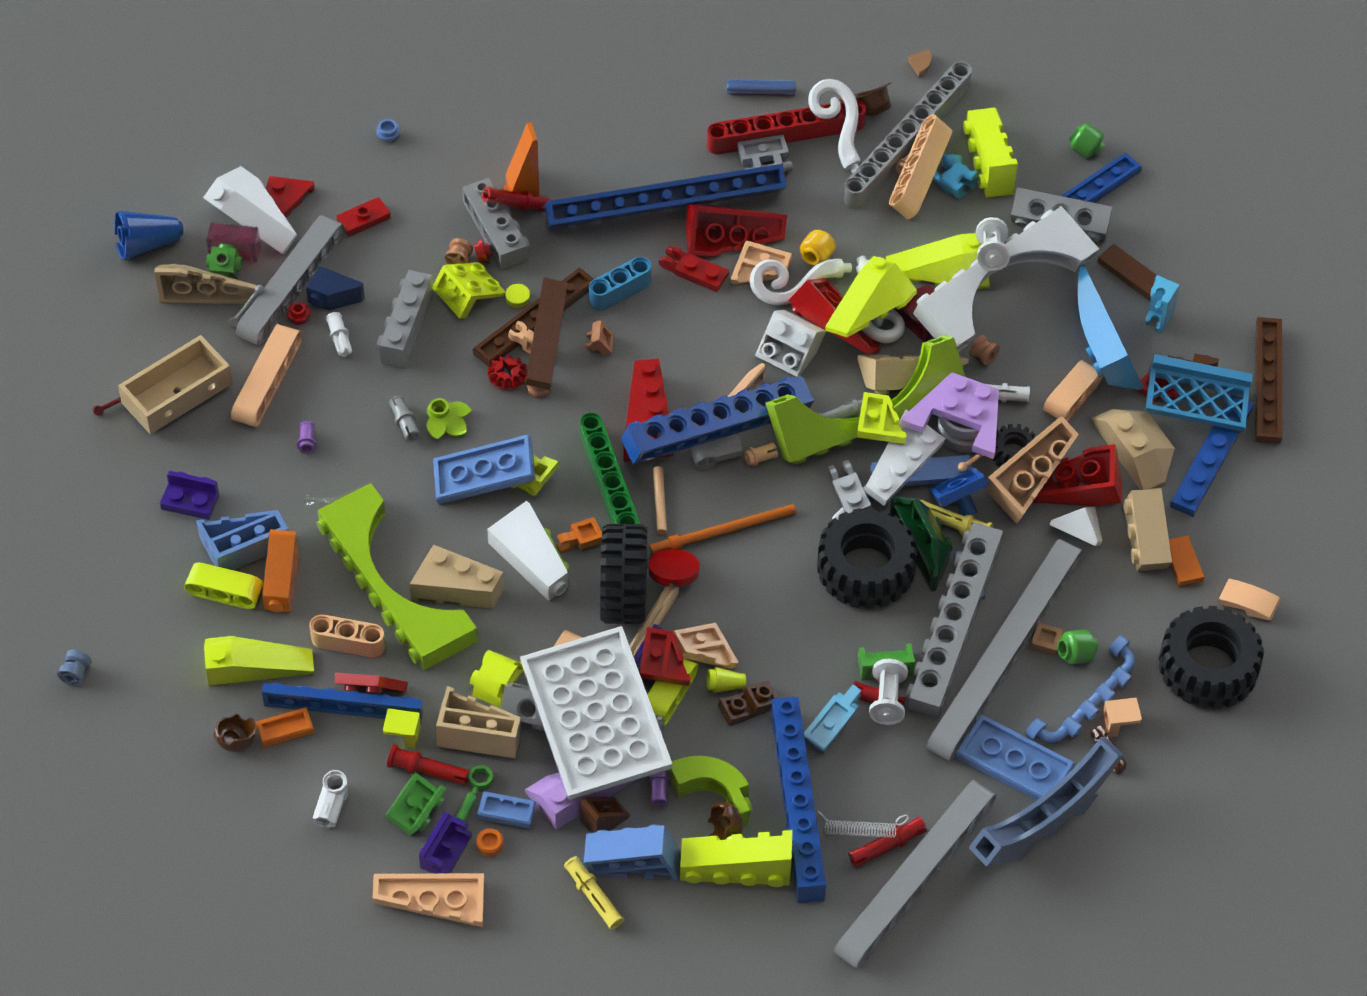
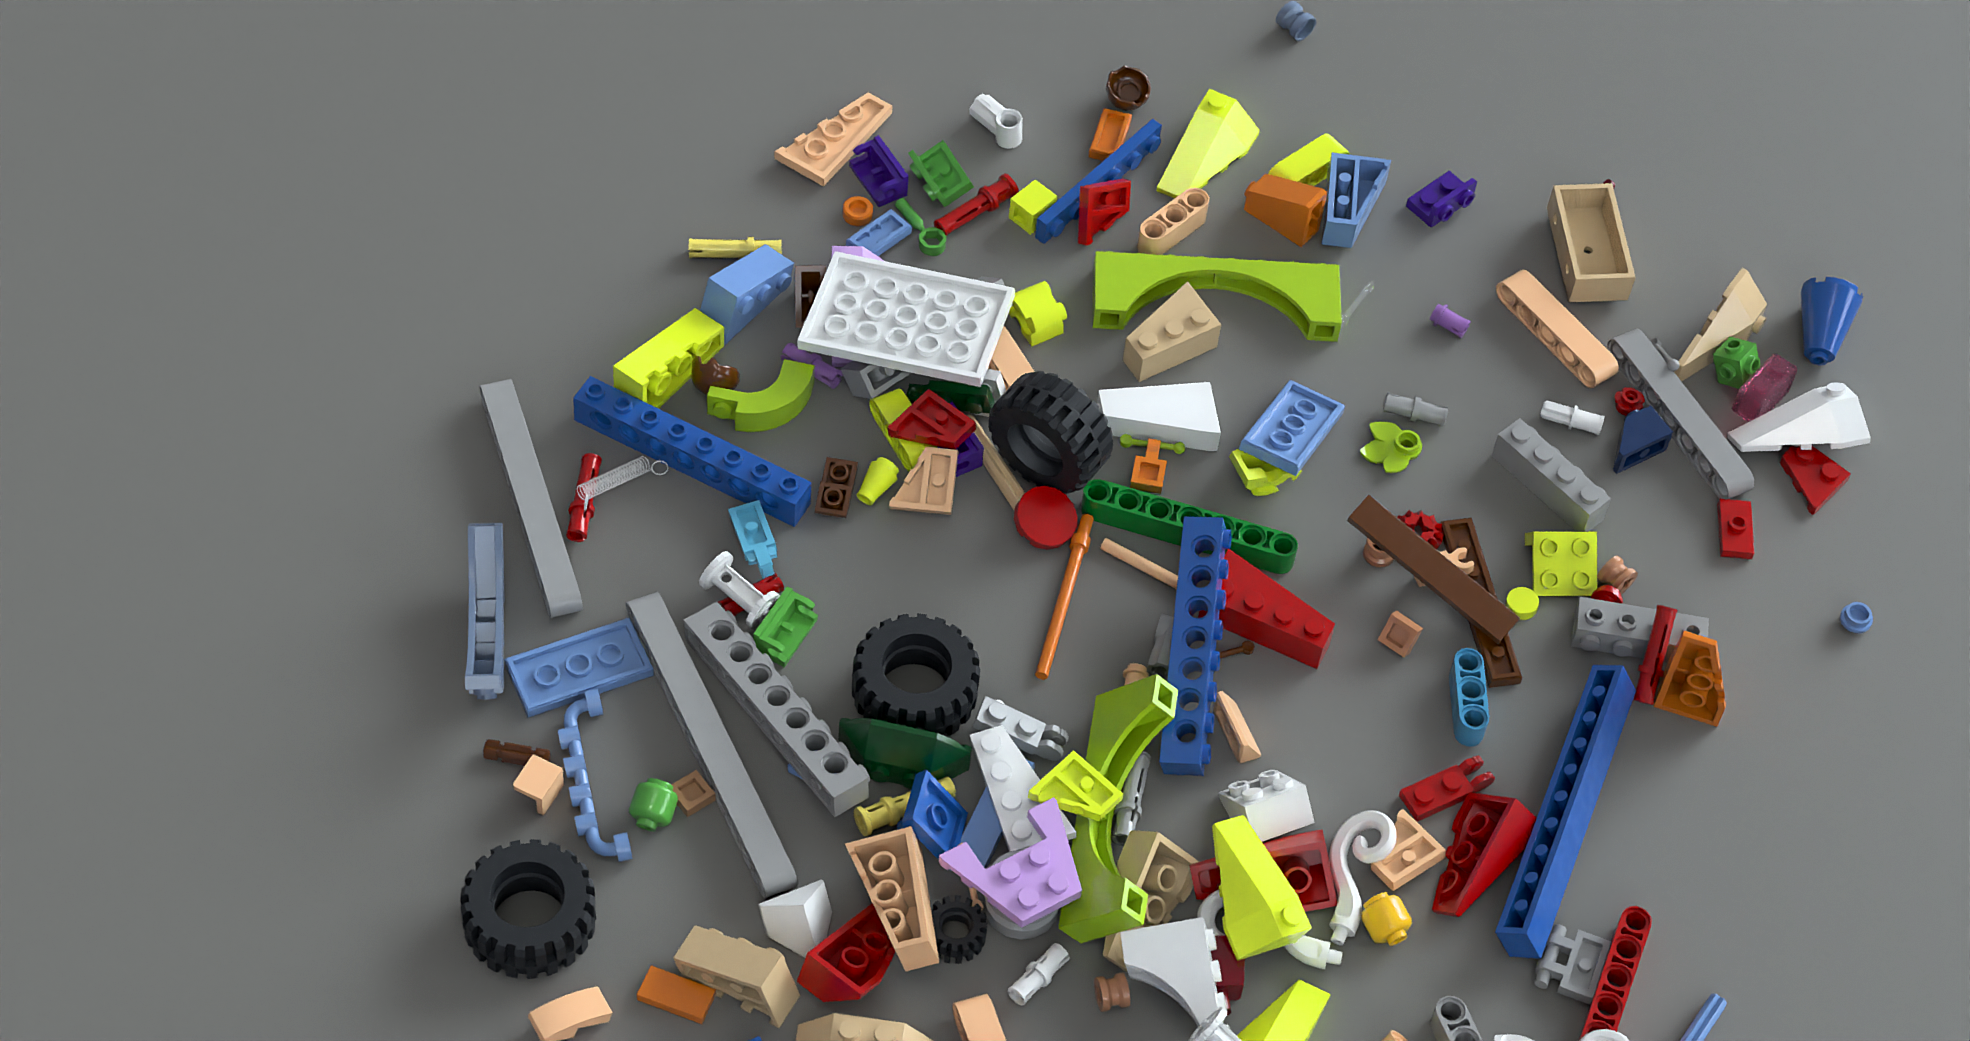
camera: 120 degrees right, 0 degrees up
(475, 727) = (990, 249): tan wedge -> none

